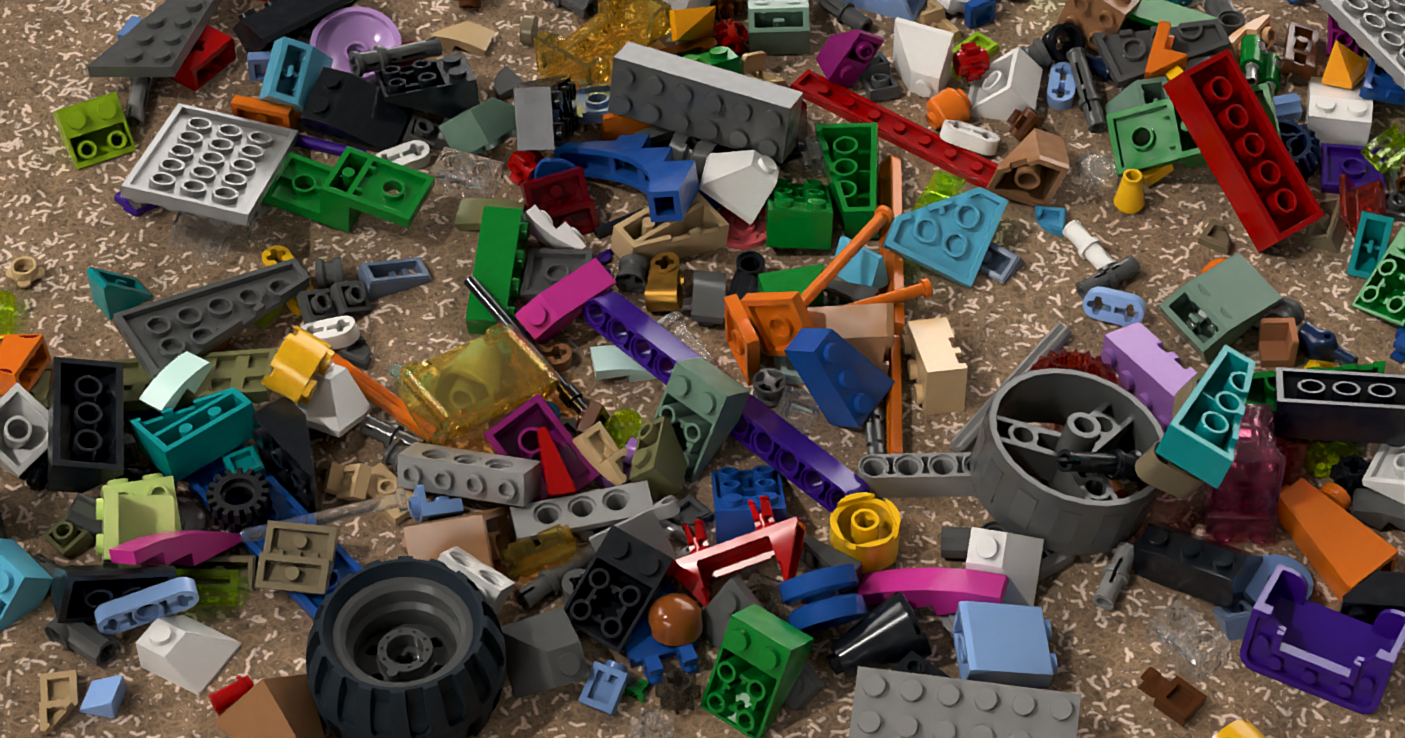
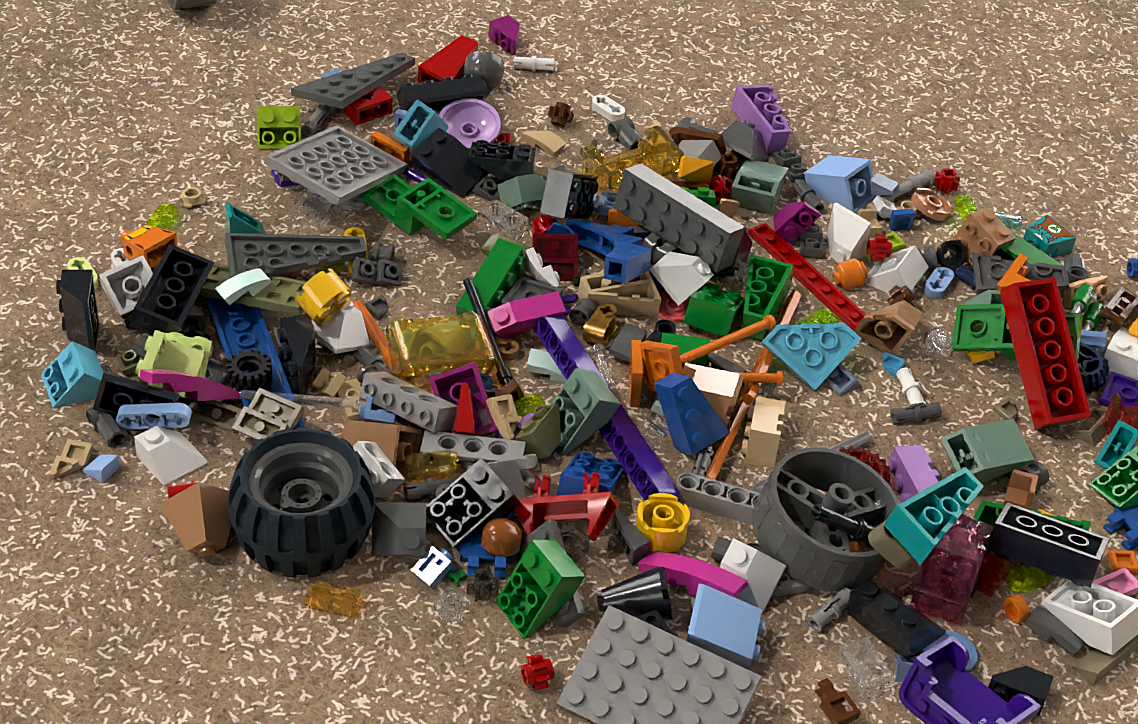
camera: 15 degrees right, 5 degrees down
(197, 434) = (241, 322): teal wedge -> none
(232, 589) = (219, 426): clear neon green tile -> none
(244, 458) = (267, 347): teal tile -> none
(336, 331) = (365, 290): white beam -> none
(378, 285) = (417, 268): sand blue slope -> none
(382, 57) = (472, 134): dark grey pin -> none
(404, 154) = (470, 197): white beam -> none
(691, 510) = (550, 470): dark grey tile -> none
(769, 379) = (641, 409): dark grey wheel -> none
(821, 594) = (609, 555): blue wheel -> none
(864, 268) = (742, 353): medium azure slope -> none
(969, 137) = (857, 295): white beam -> none
(1090, 100) = (954, 296): dark grey pin -> none
(1116, 311) = (914, 428): light blue beam -> none
(1130, 193) = (956, 362): yellow cone -> none
(1322, 345) = (1052, 501): dark blue piece -> none
(1332, 538) = (1003, 633): orange slope -> none
(1349, 473) = (1035, 594): black gear -> none

